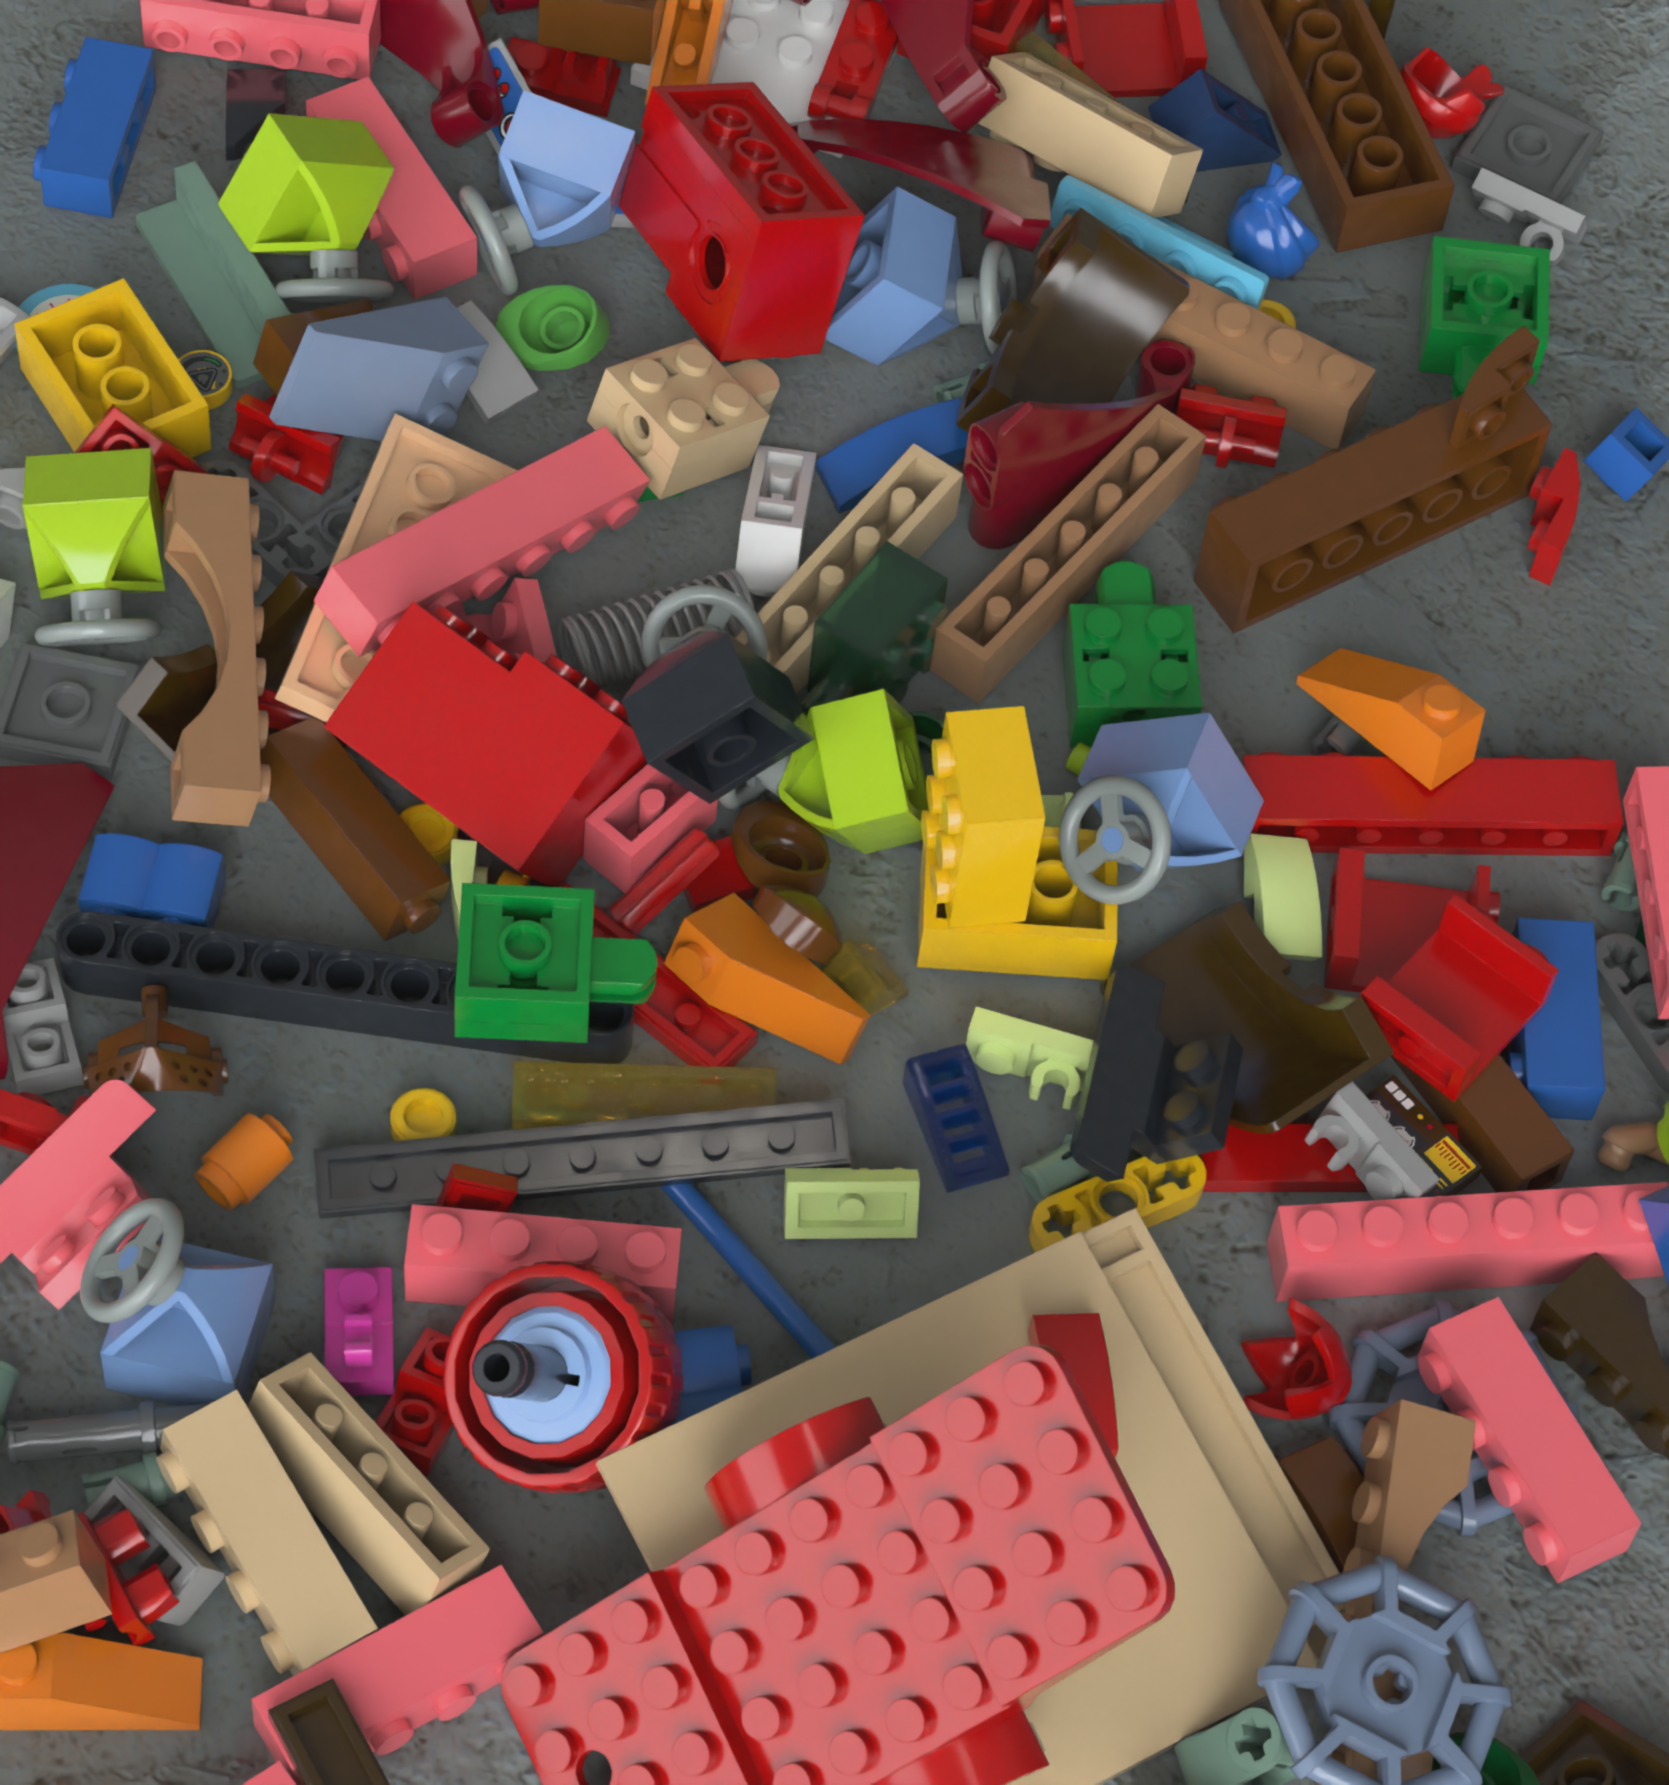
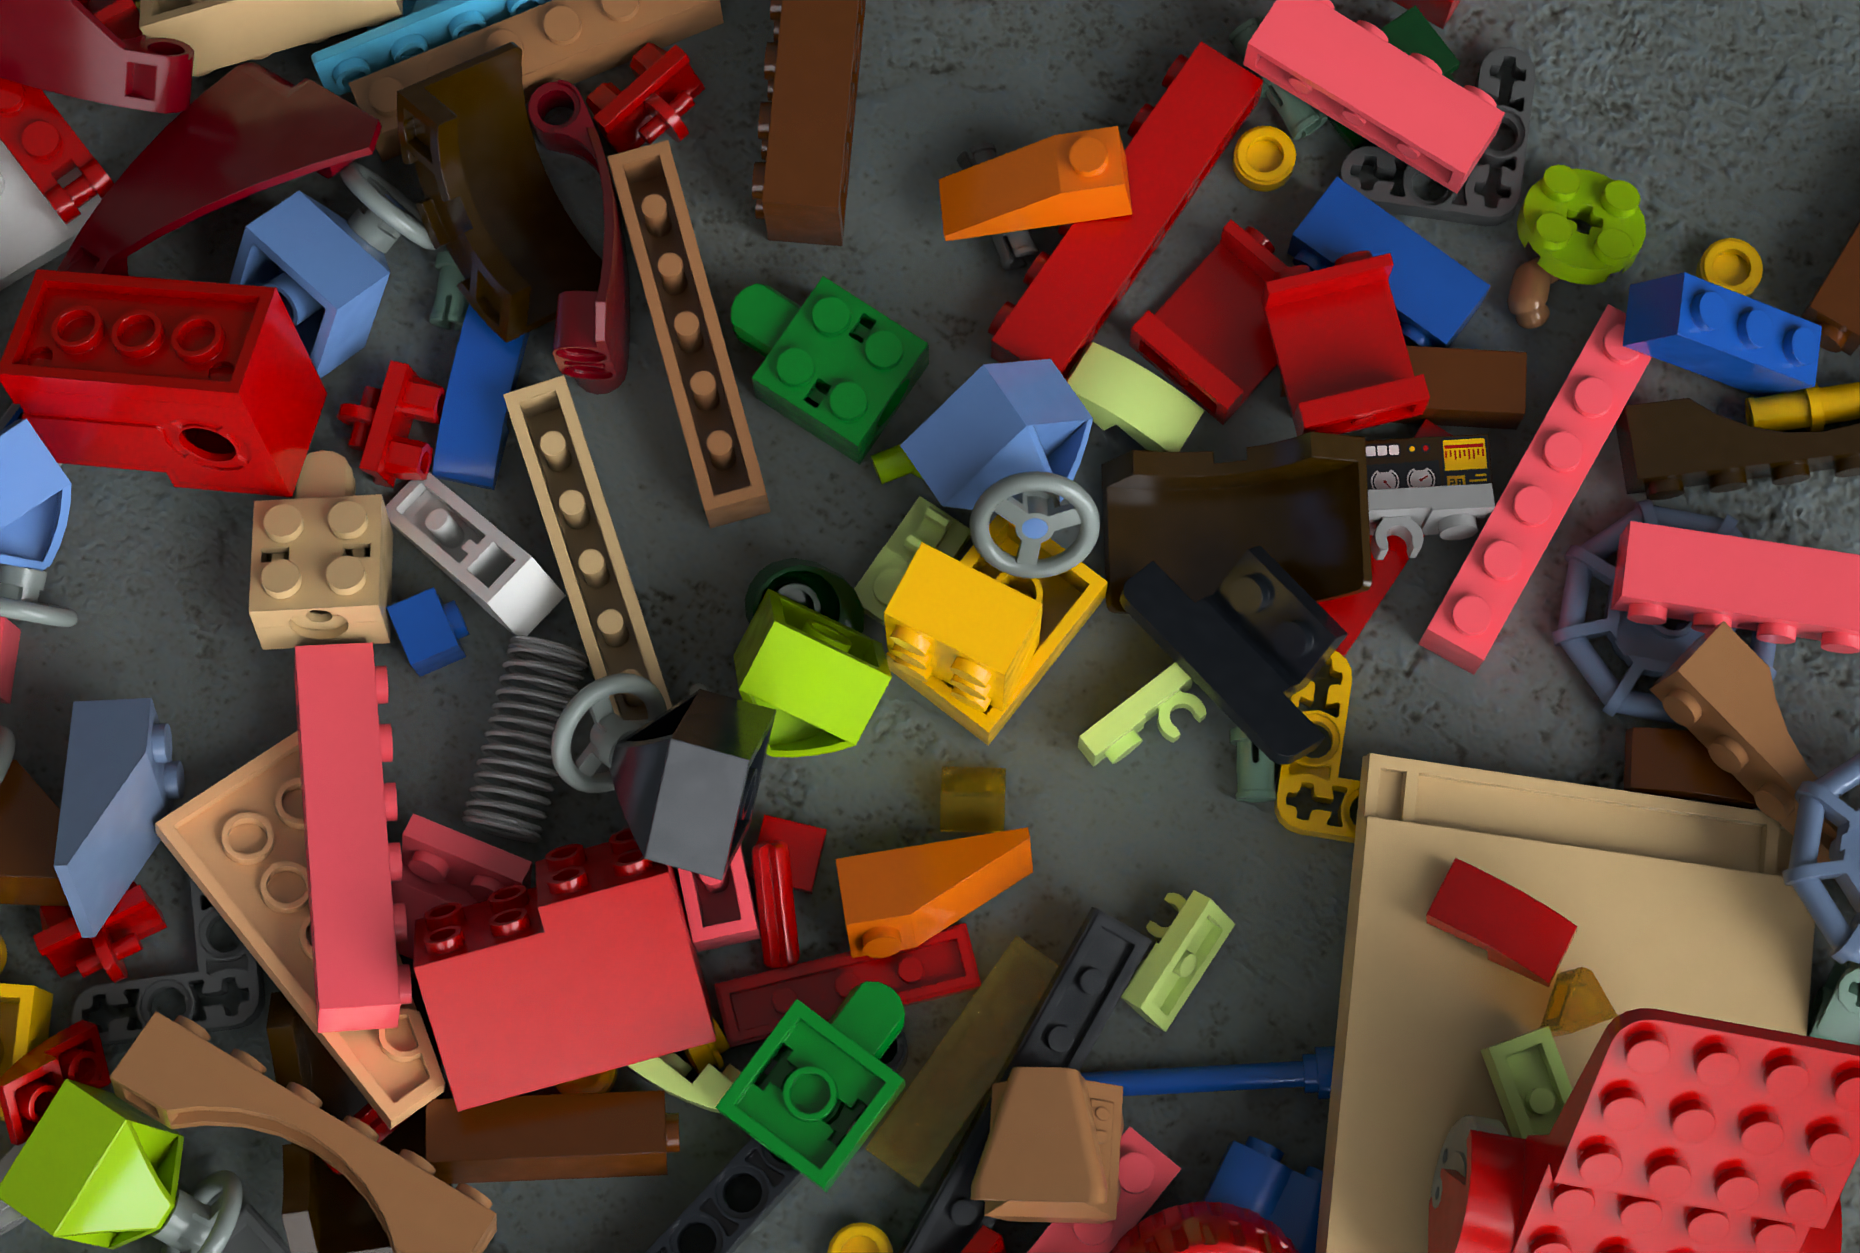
camera: 45 degrees left, 20 degrees up
(501, 377) = (171, 689): light grey slope -> none
(554, 327) = (138, 609): bright green hat -> none
(615, 1158) = (1051, 1148): none -> medium nougat piece
(689, 522) = (429, 630): none -> blue plate
(779, 847) = (814, 791): reddish brown hat -> none
(800, 921) = (902, 827): reddish brown hat -> none
(831, 404) = (384, 424): none -> red hips
(877, 630) = (671, 573): clear green brick -> none
(943, 1078) = (1137, 787): clear blue slope -> none
(1300, 1372) = (1565, 708): red piece -> none
(1566, 883) = (1264, 158): none -> yellow tile

